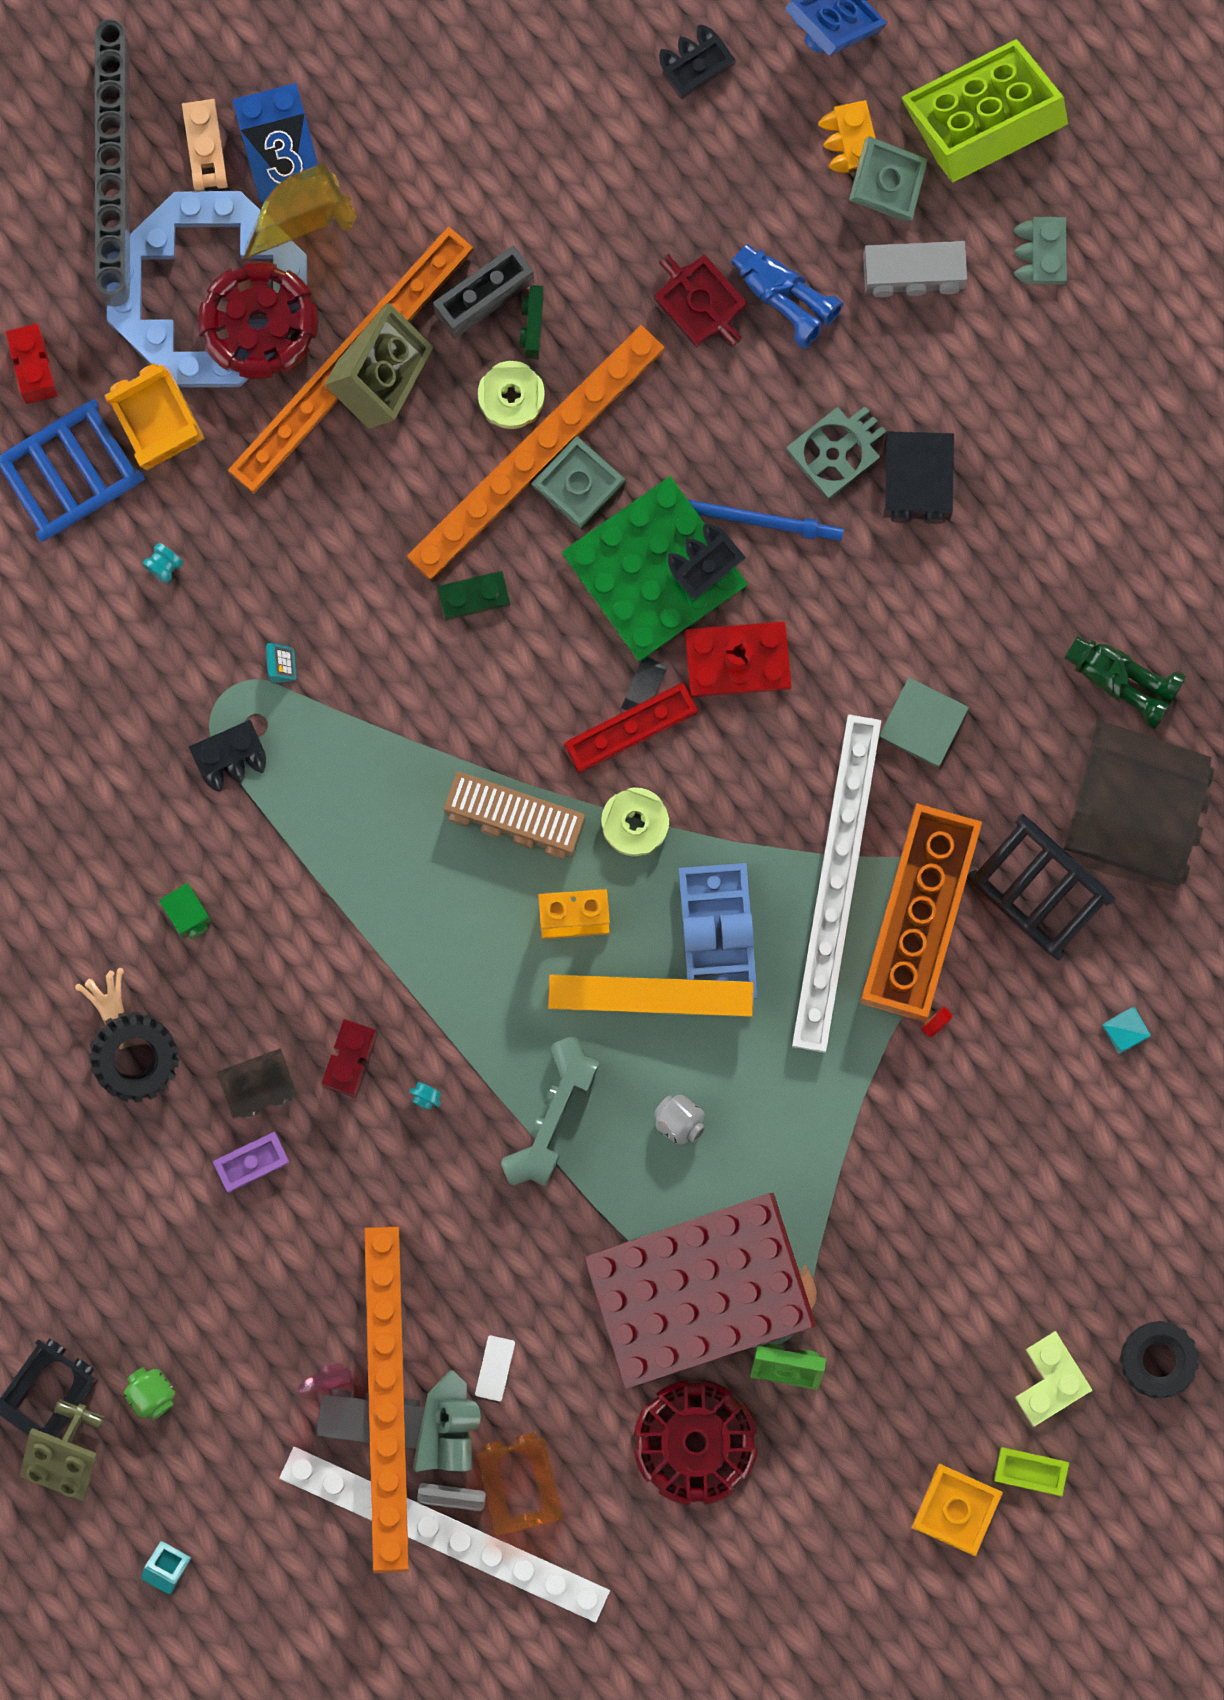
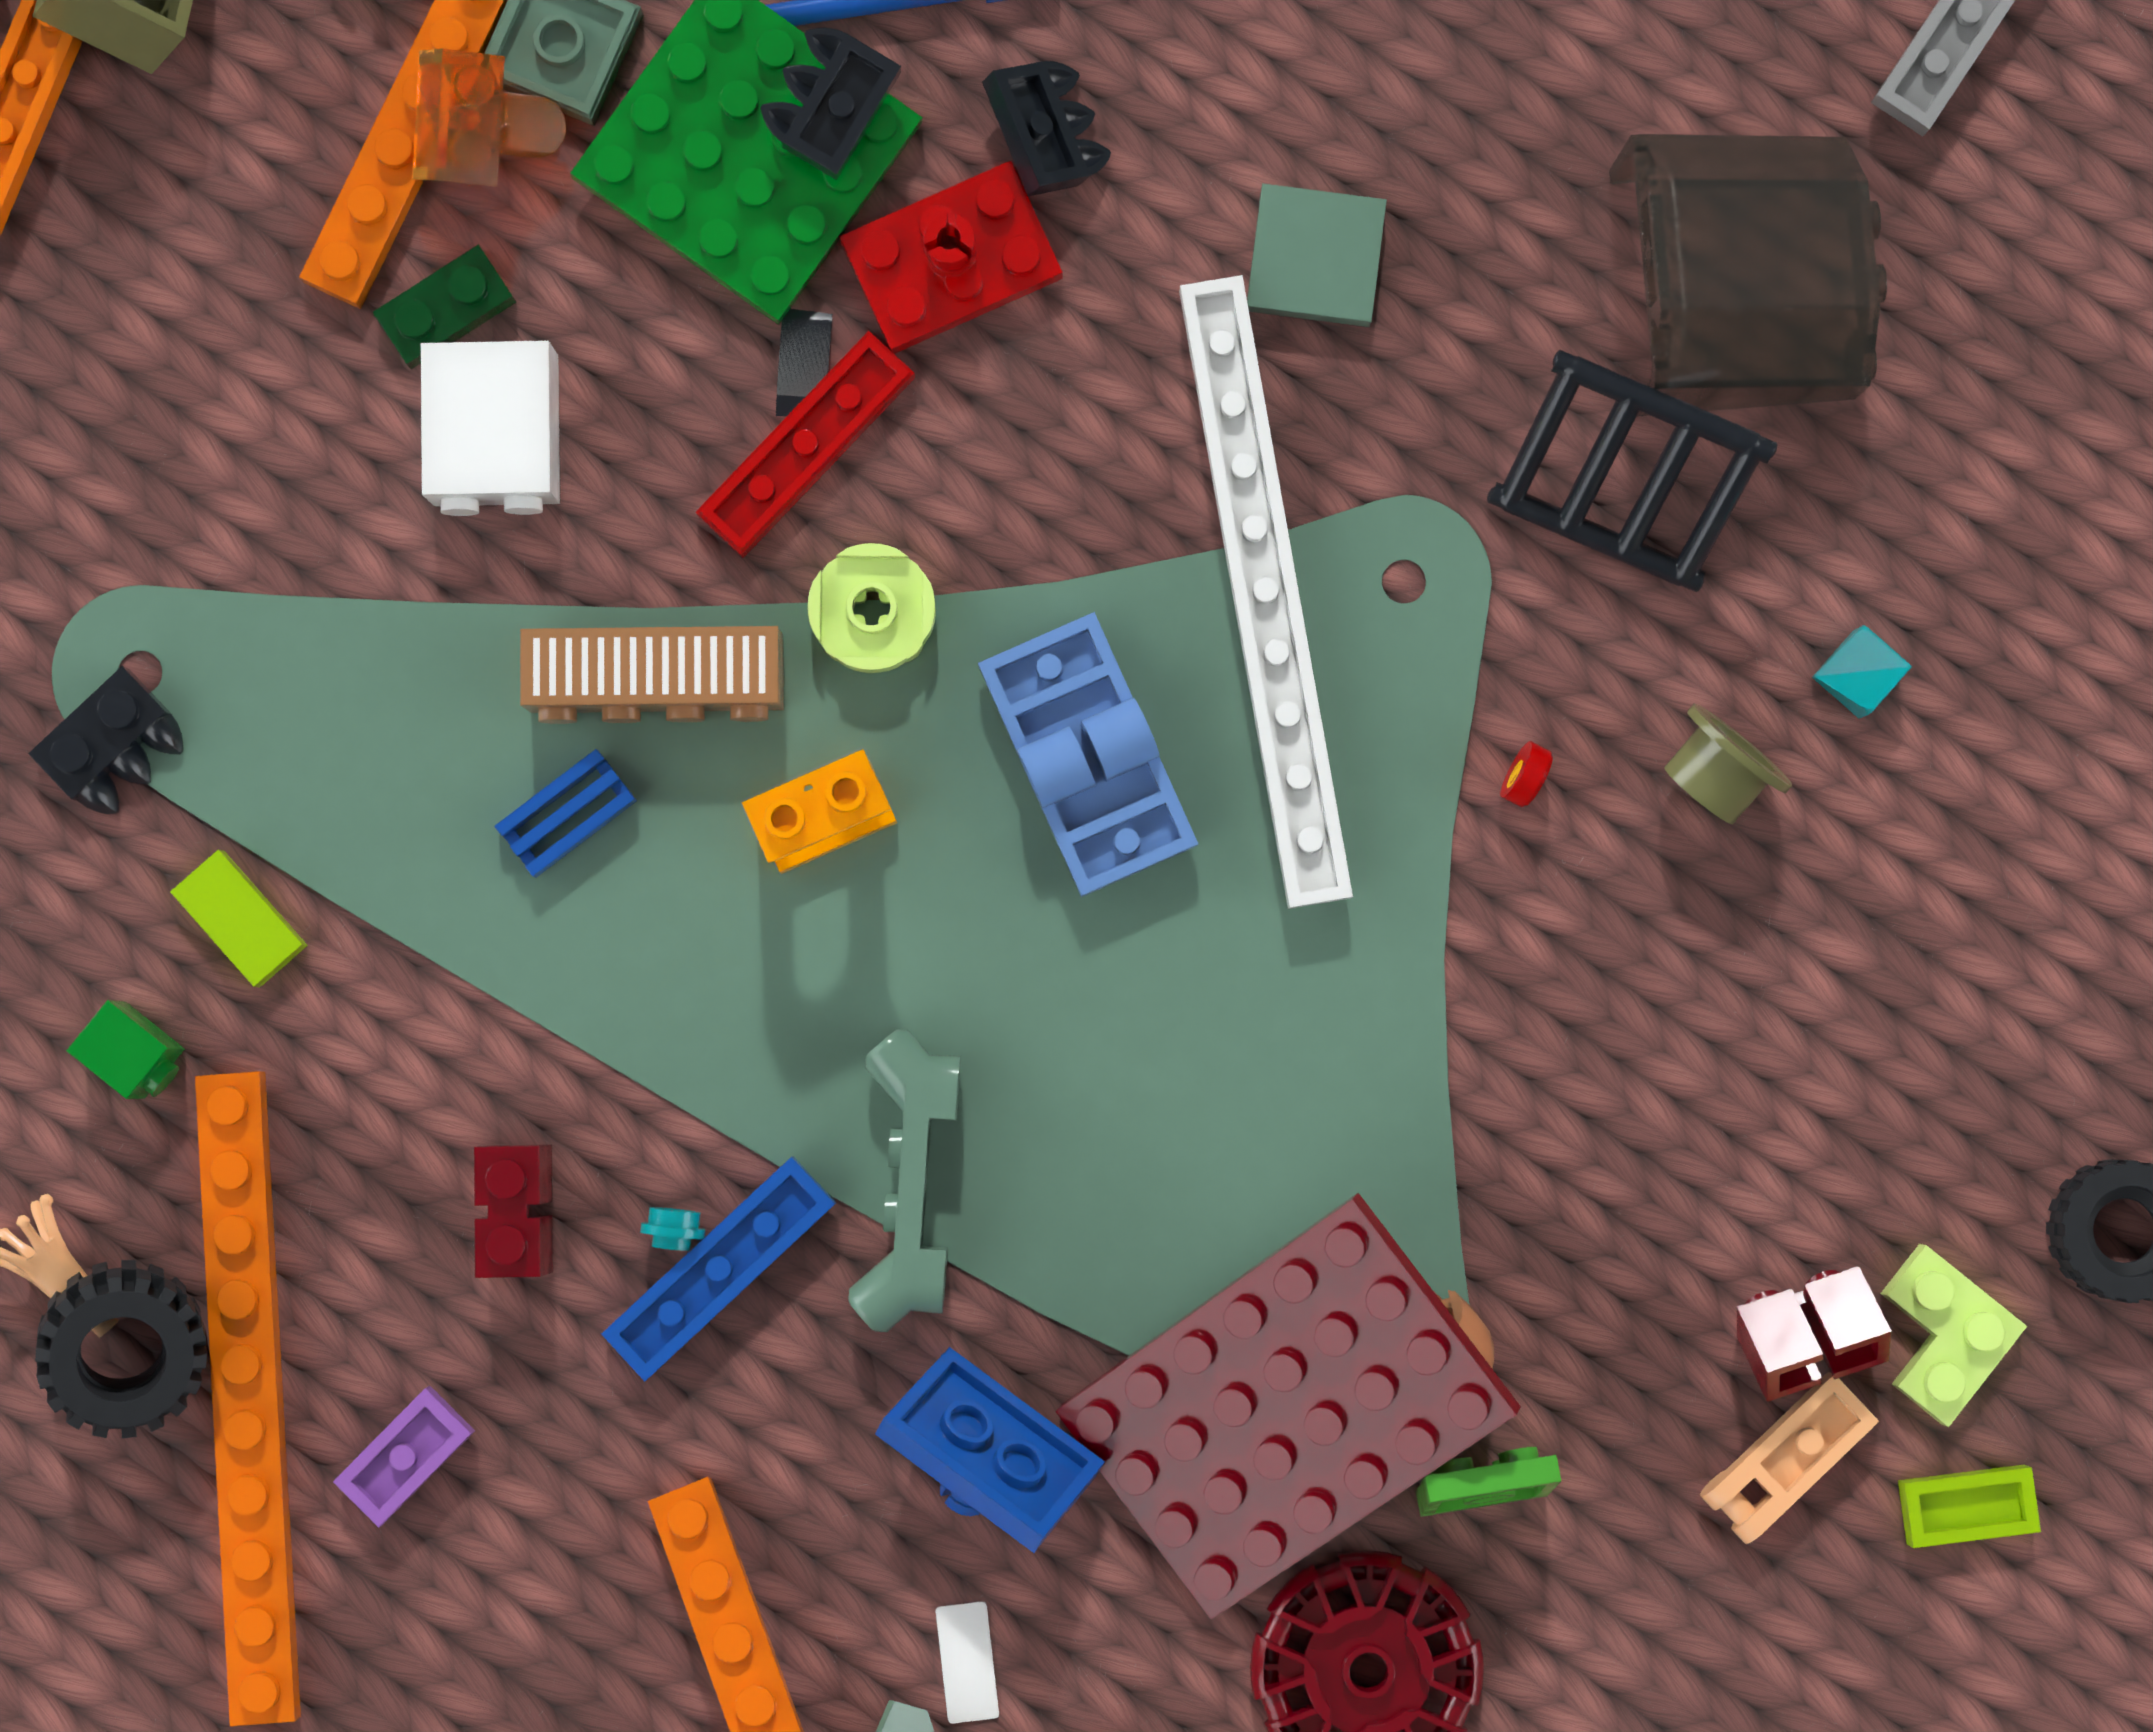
camera: 25 degrees left, 5 degrees up
(182, 1106) = (247, 1399): none -> orange plate
(257, 1084) = (365, 1314): clear smoke bracket -> none
(262, 865) = (238, 918): none -> lime tile
(280, 663) = (141, 546): slope -> none
(427, 862) = (522, 845): none -> blue tile
(441, 1124) = (718, 1268): none -> blue plate
(476, 664) = (490, 426): none -> white brick
(521, 509) = (470, 120): none -> clear orange brick
(545, 1260) = (989, 1450): none -> blue plate
(651, 995) = (1010, 907): light orange tile -> none
(679, 1119) = (1138, 1109): light grey head -> none
(807, 610) = (1043, 127): none -> black plate
(920, 912) = (1434, 590): orange brick -> none
(948, 1412) = (1790, 1457): none -> light nougat plate
(956, 1509) = (1866, 1622): light orange plate -> none
(997, 1346) = (1829, 1319): none -> piece
(1036, 1052) = (1722, 767): none -> olive piece
(1110, 671) = (1615, 47): dark green piece -> none

